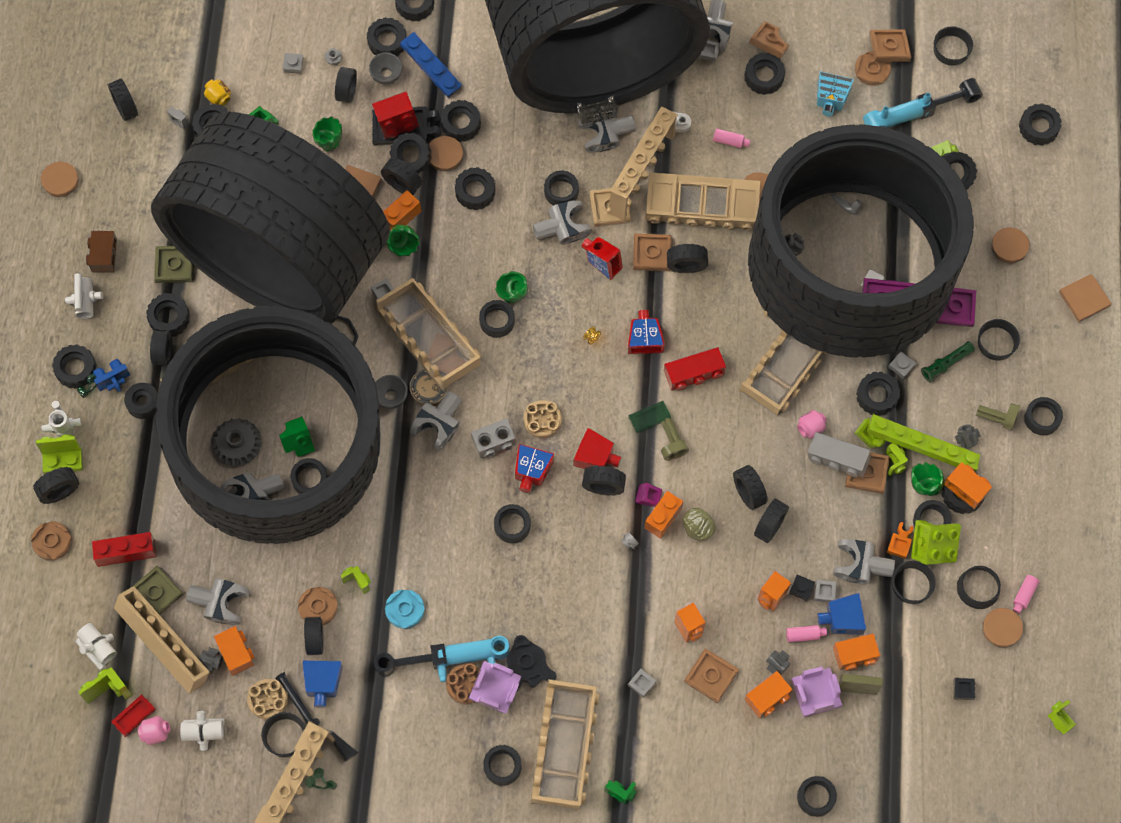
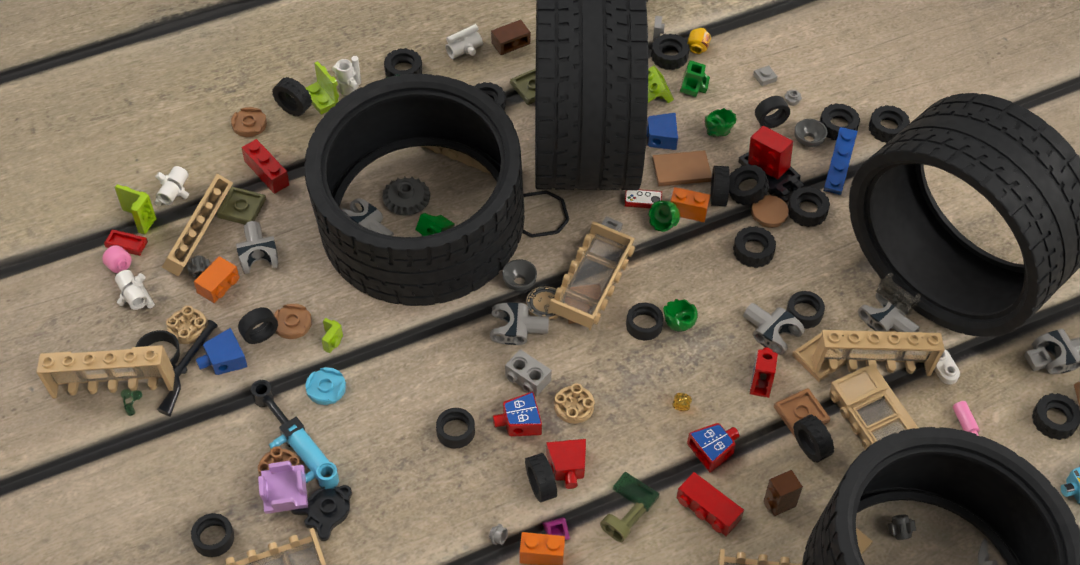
camera: 60 degrees right, 15 degrees down
(720, 310) = (782, 493): none -> reddish brown brick

